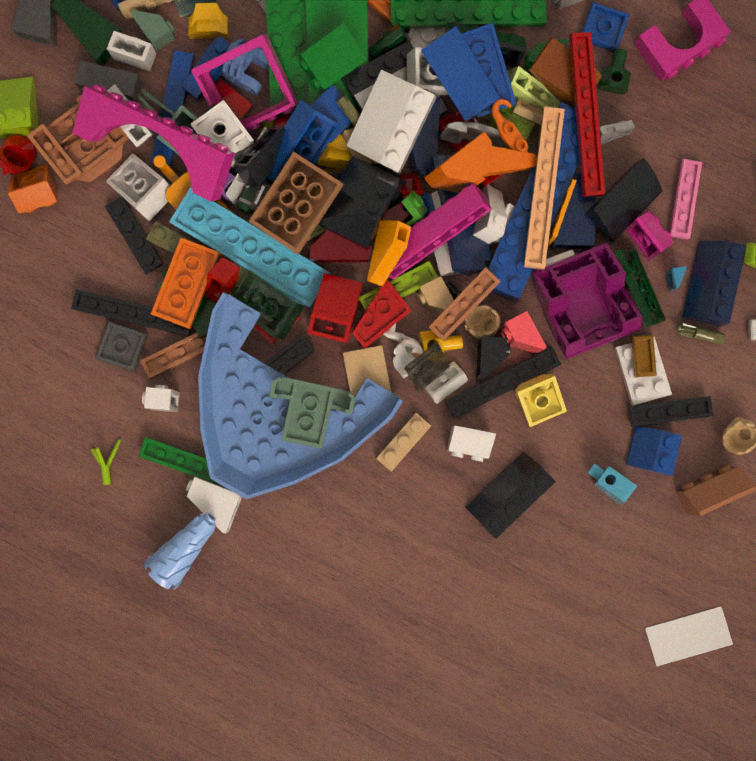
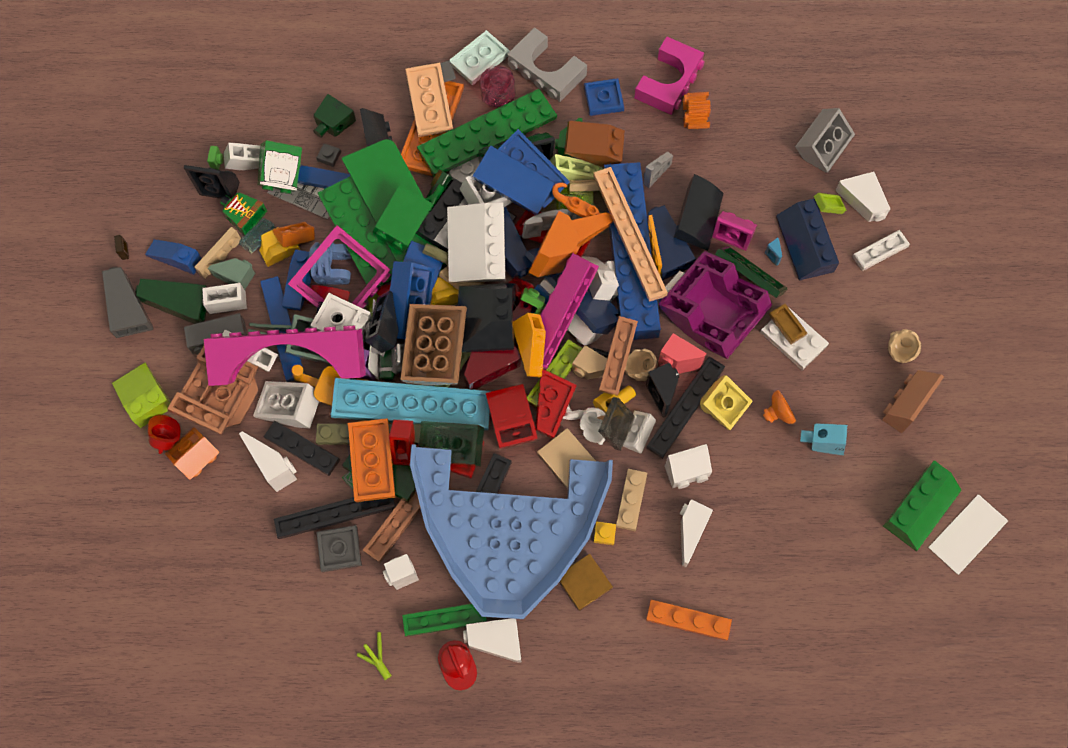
camera: 25 degrees left, 15 degrees down
(95, 240) = (276, 469): none -> white slope
(172, 504) = (457, 665): none -> red piece
(175, 557) = (488, 703): light blue cone -> none
(228, 18) = (294, 234): none -> orange slope
(309, 409) = (537, 508): sand green piece -> none
(321, 494) = (585, 582): none -> pearl gold tile
(362, 459) = (605, 533): none -> yellow plate
(379, 50) = (434, 198): none -> green bar
(393, 576) = (689, 620): none -> orange plate
(445, 495) = (692, 526): none -> white slope
(510, 494) = (747, 495): black slope -> none
(586, 433) = (779, 410): none -> orange hair
(587, 114) = (631, 163): red plate -> none
(617, 71) = (634, 122): dark green piece -> none
(654, 450) = (843, 394): blue slope -> none
(663, 590) = (923, 505): none -> green slope
(670, 411) = (836, 357): black plate -> none
(685, 199) = (745, 190): bright pink tile -> none
(687, 91) = (697, 110): none -> orange brick
(697, 332) = (821, 284): olive piece -> none

